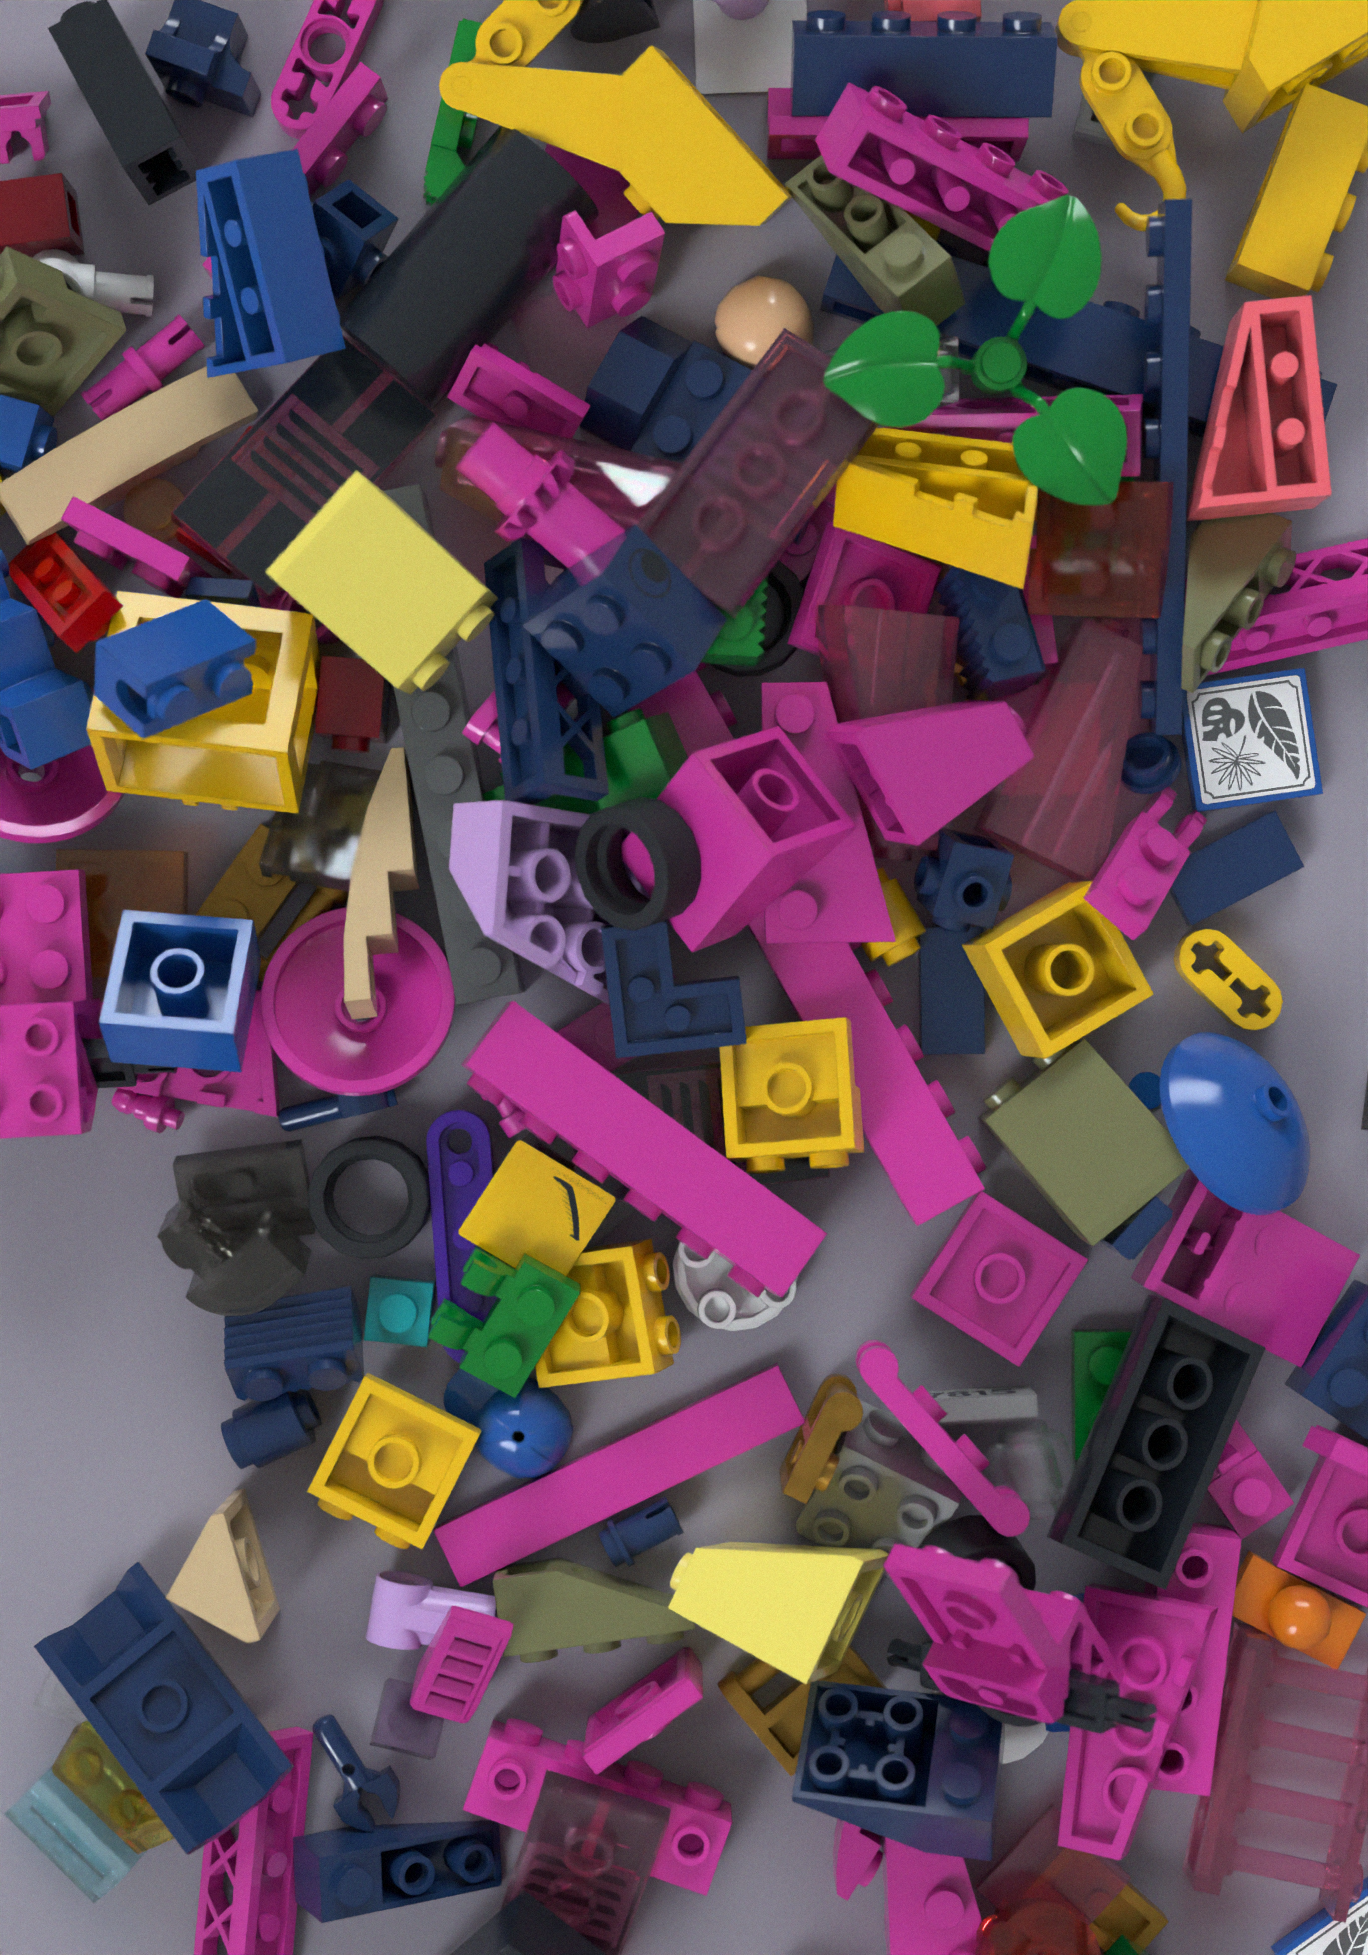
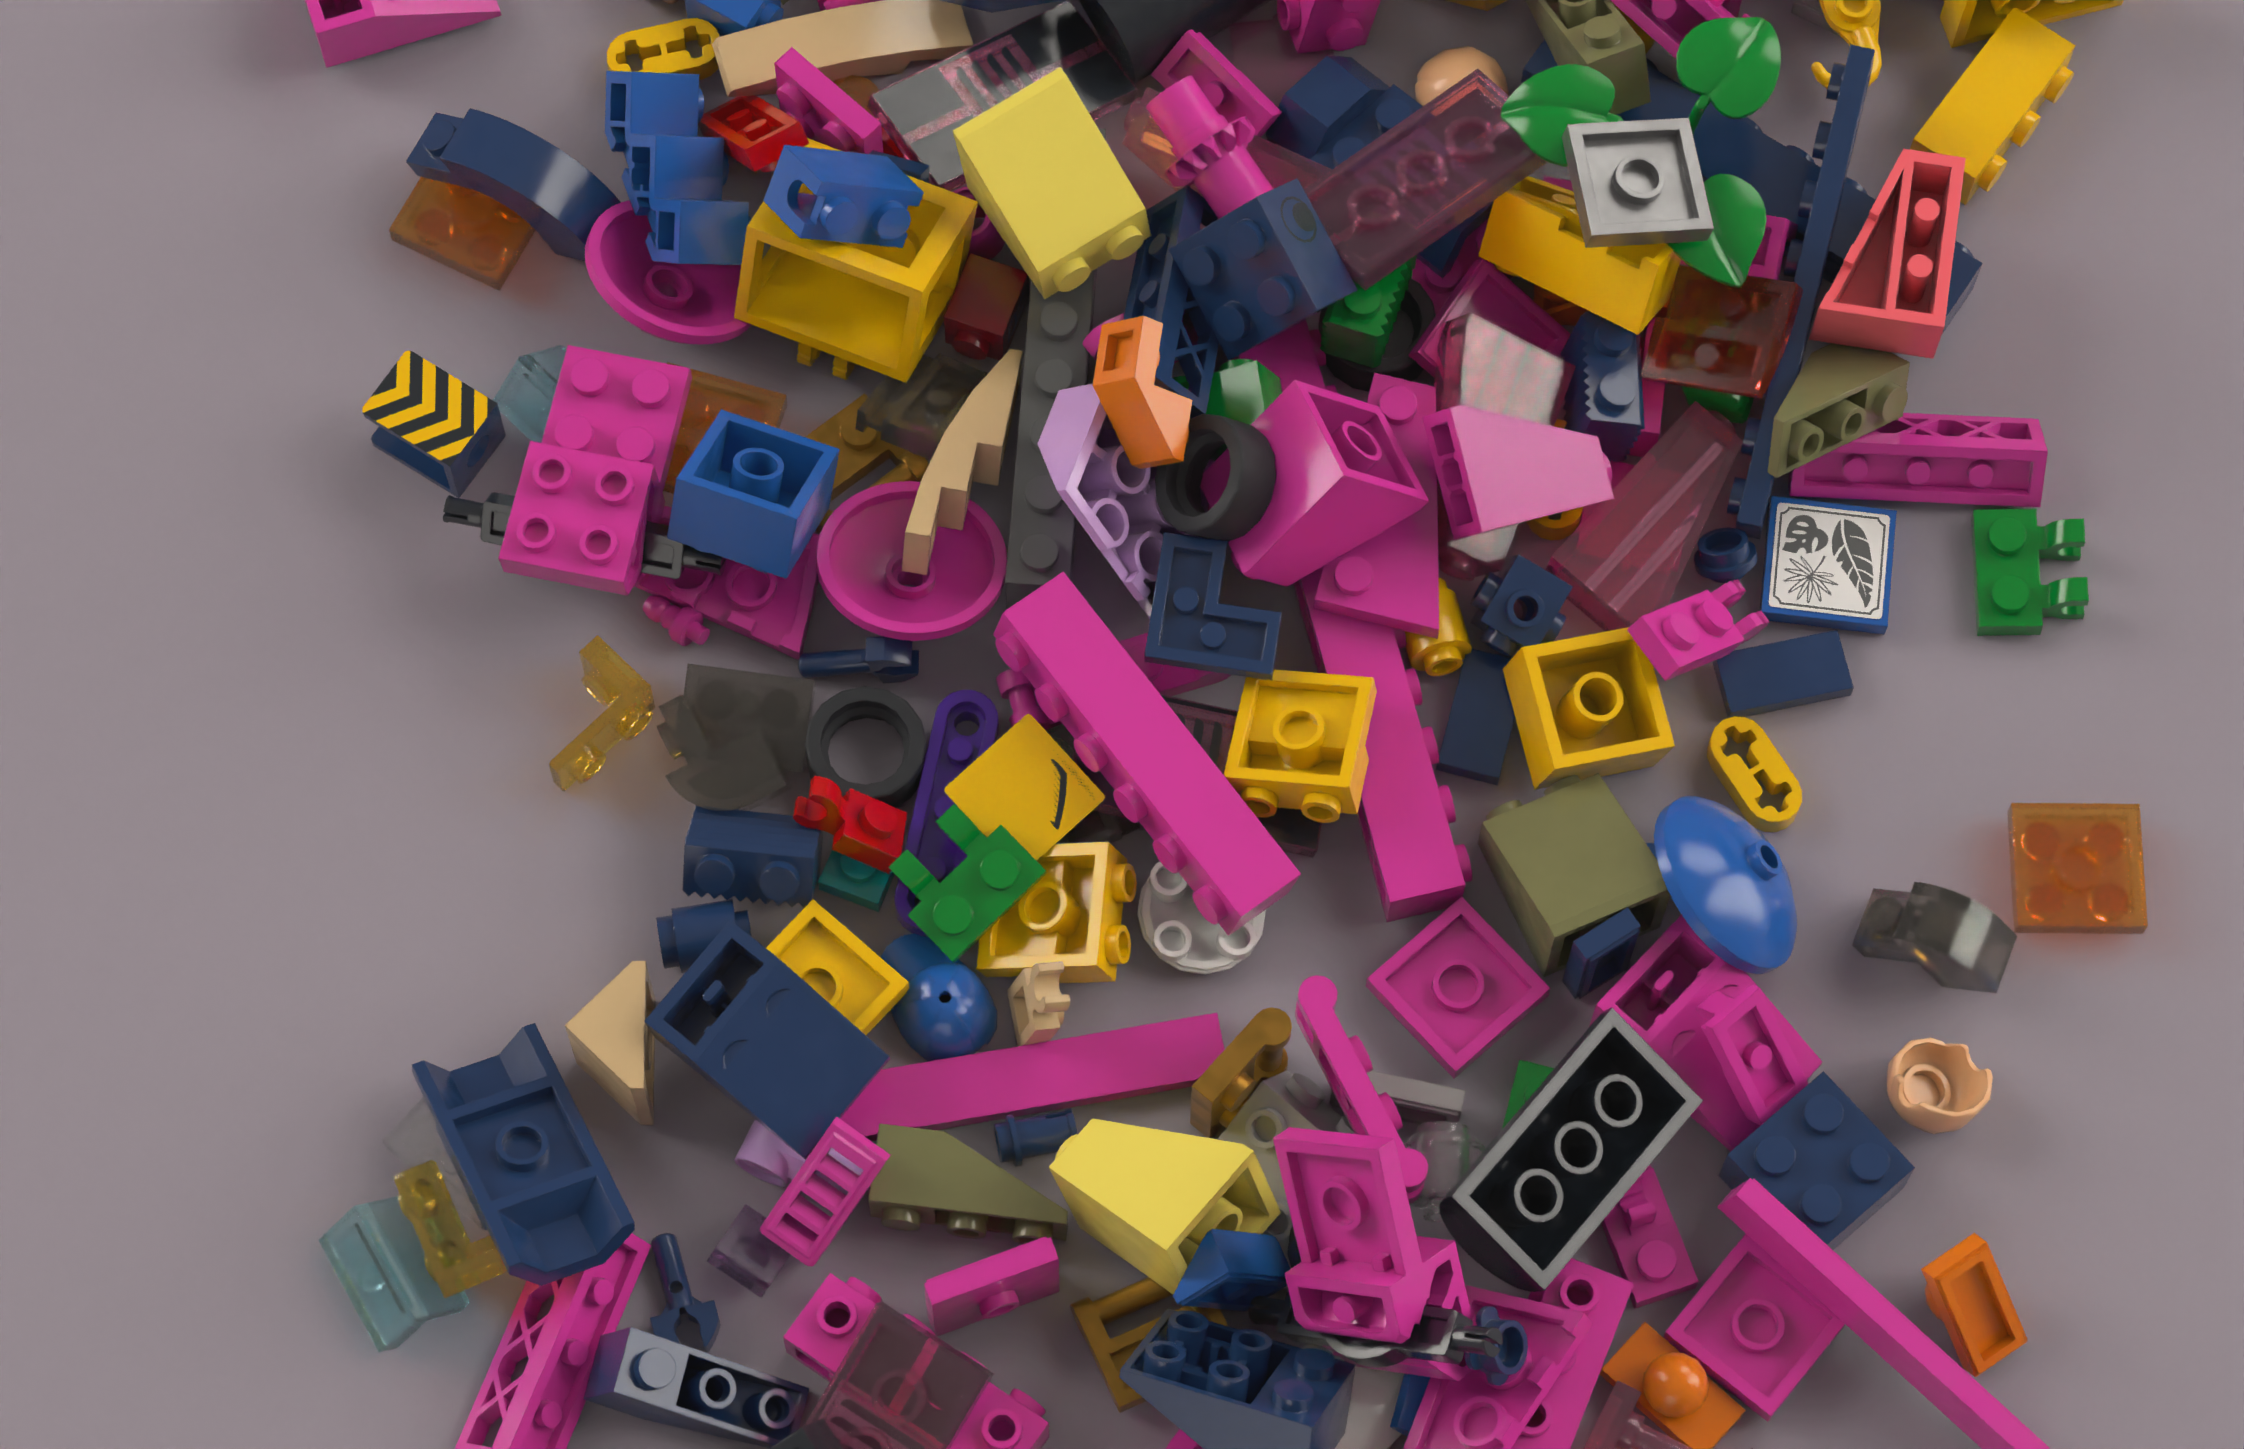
camera: 15 degrees right, 20 degrees down
(102, 1196) = (608, 681): none -> clear yellow bracket
(361, 1547) = (766, 1039): none -> dark blue slope
(388, 1286) = (860, 824): none -> red plate
(520, 801) = (1145, 417): none -> orange slope
(608, 1413) = (1037, 1003): none -> tan plate
(866, 1638) = (1232, 1271): none -> blue slope
(988, 432) = (1637, 182): none -> flat silver plate
(1138, 1666) = (1512, 1351): none -> dark blue plate
(1302, 1292) = (1752, 1052): none -> dark pink plate

